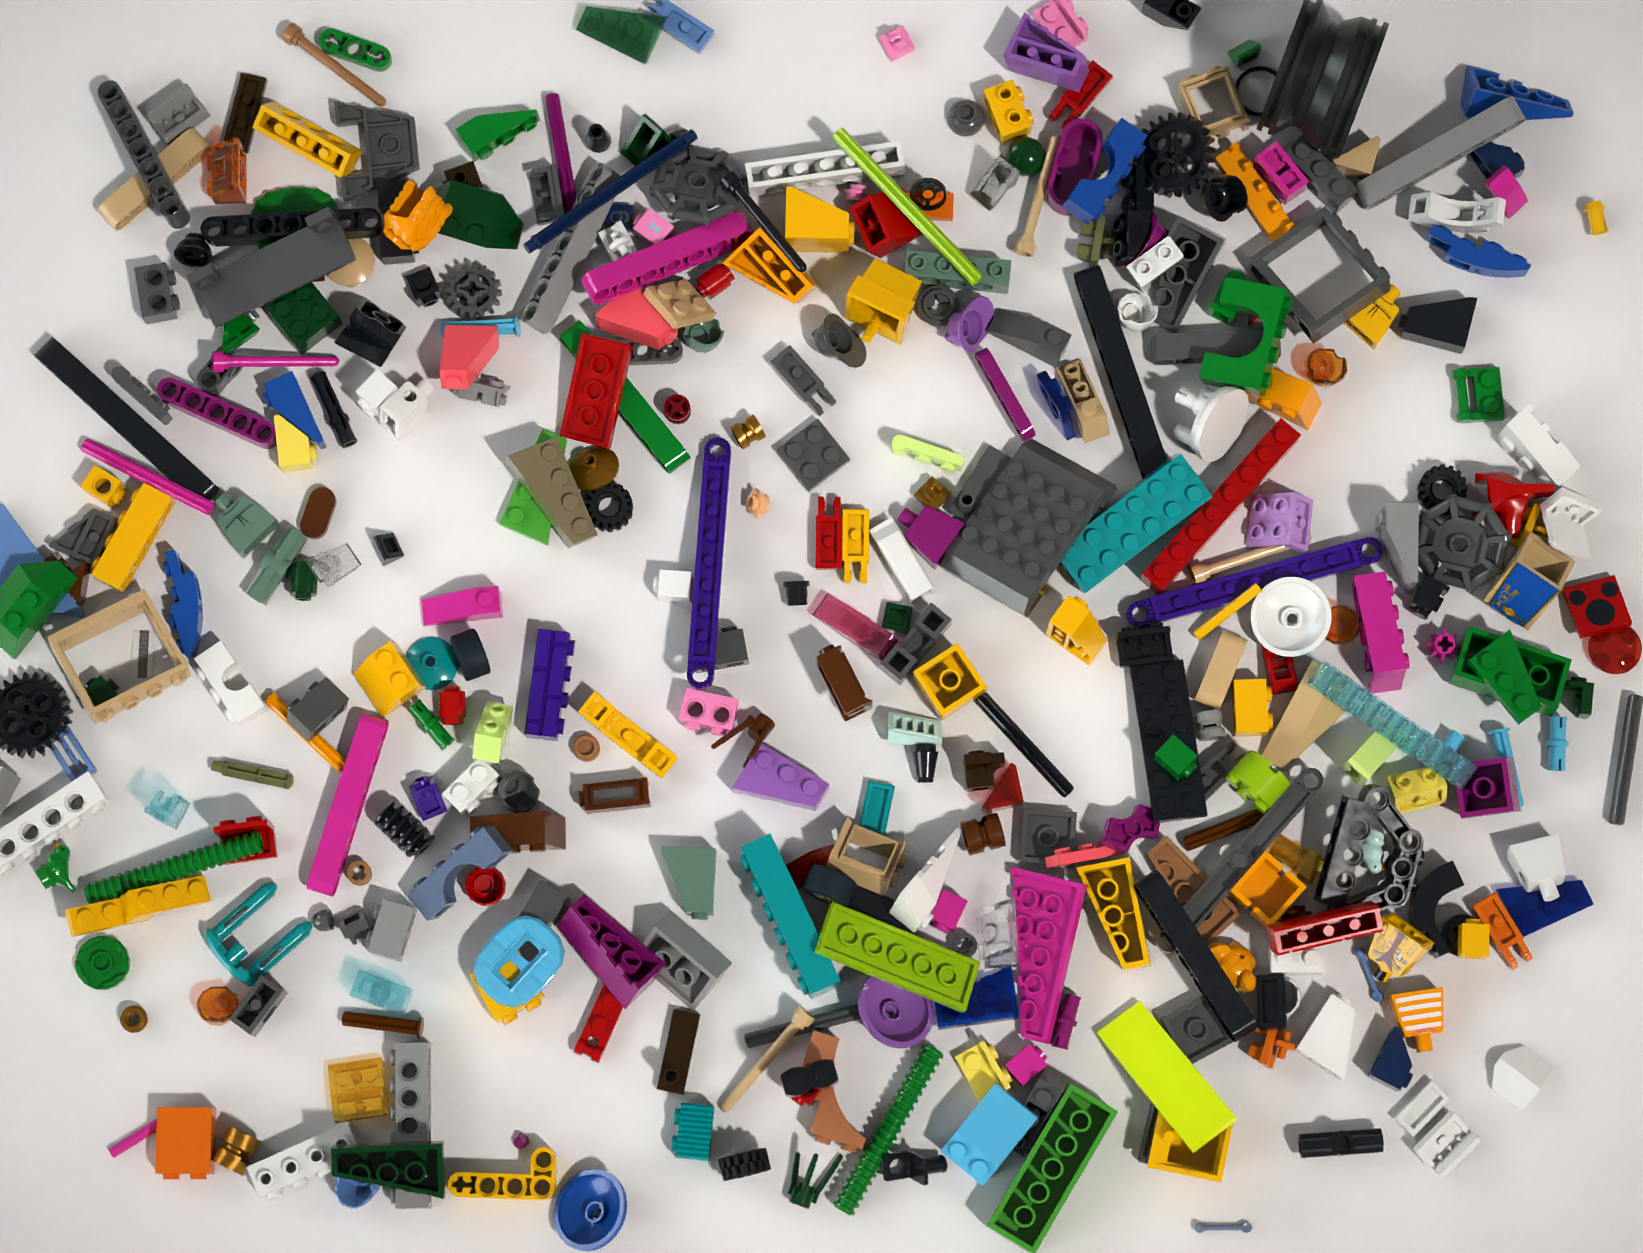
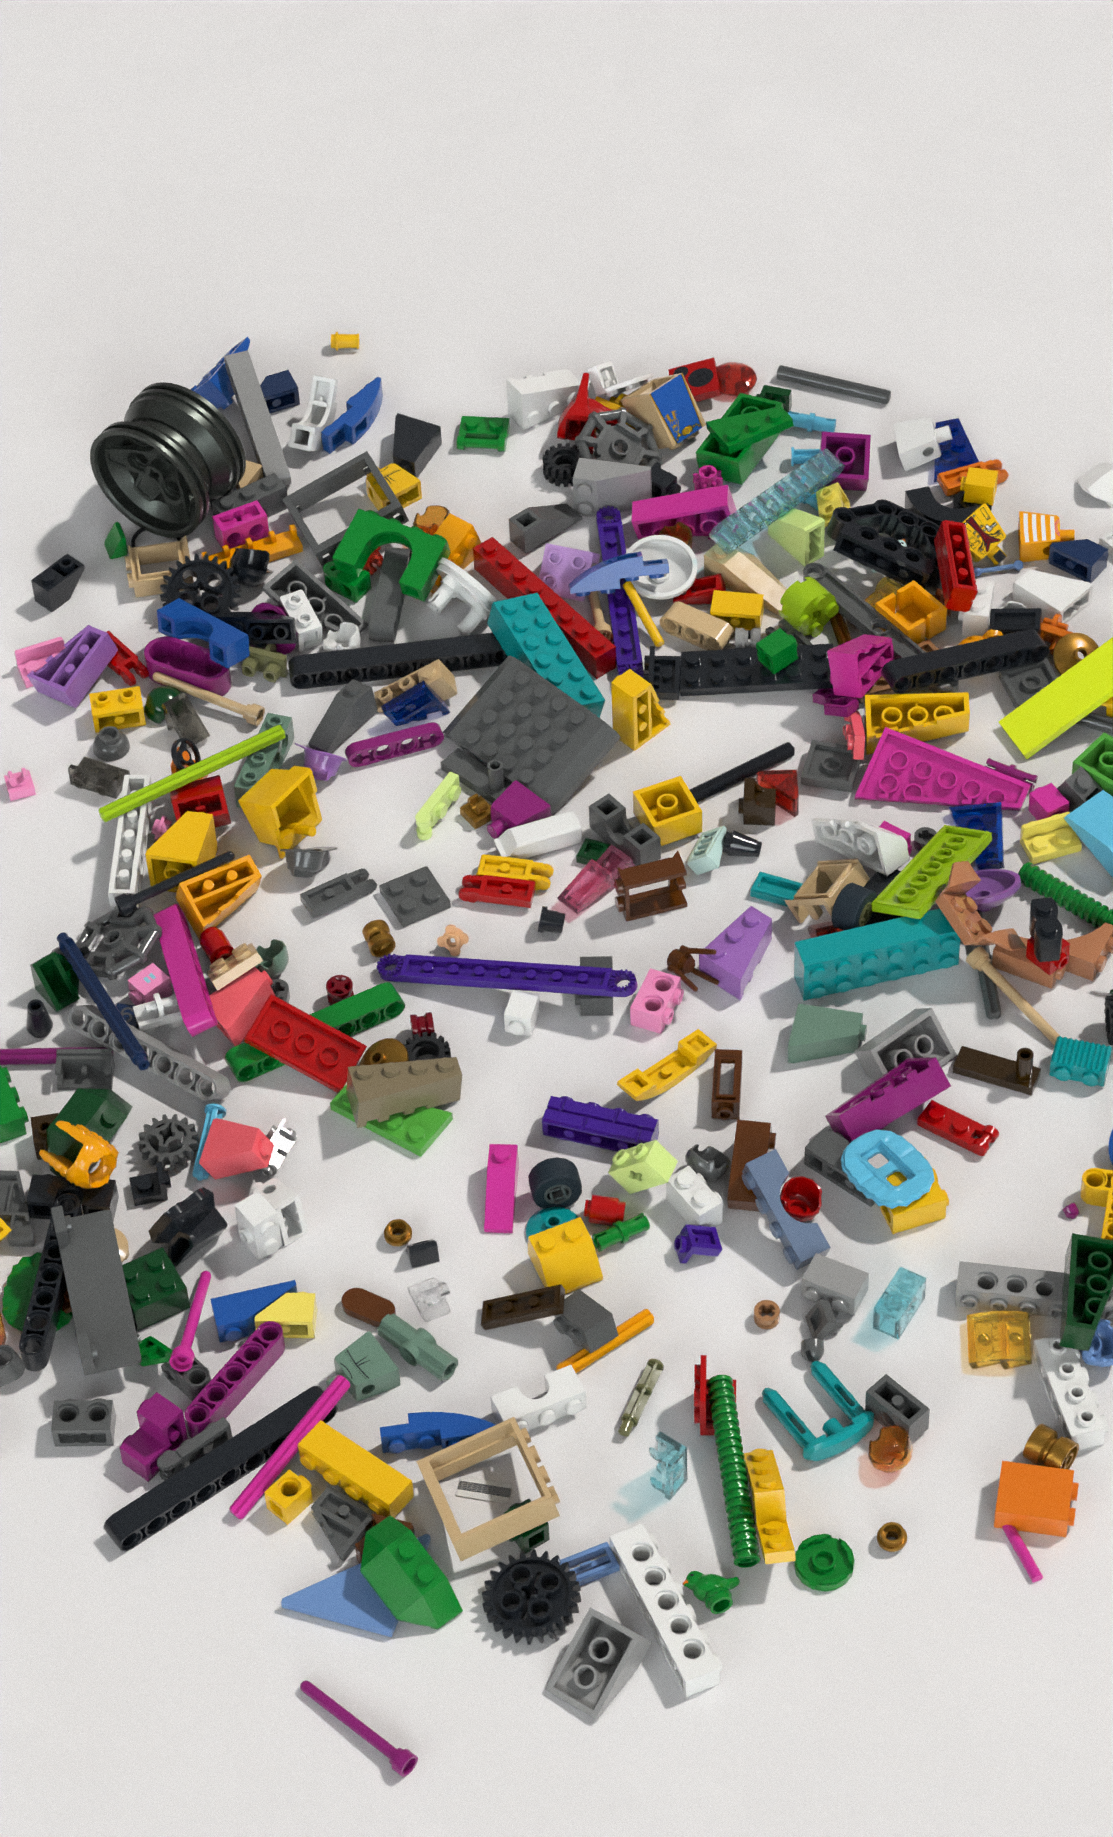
camera: 80 degrees left, 30 degrees down
(142, 357) = (160, 1430): none -> magenta brick
(193, 251) = (47, 1381): black piece -> none
(303, 582) = (441, 1322): dark green brick -> none
(326, 651) = (523, 1307): none -> dark brown tile
(338, 419) = (260, 1278): black pin -> none
(347, 804) = (692, 1312): dark pink beam -> none
(384, 1023) = (931, 1308): reddish brown axle -> none
(403, 514) = (400, 1227): none -> pearl gold plate
(403, 830) = (729, 1261): black piece -> none
(586, 748) = (671, 1109): medium nougat tile -> none
(644, 495) = (422, 1024): none -> dark red wheel
(823, 1002) = (963, 914): none -> nougat piece
(918, 116) = (97, 777): none -> clear smoke bracket
(983, 834) = (819, 802): reddish brown wheel -> none
(998, 935) = (921, 798): clear slope -> none
(1174, 846) = (858, 664): none -> dark pink wedge
(1248, 1065) = (1067, 648): none -> pearl gold dish
(1265, 569) = (607, 574): none -> slope
(1344, 484) = (539, 524): none -> dark grey slope
(1505, 186) = (299, 380): dark pink slope -> none

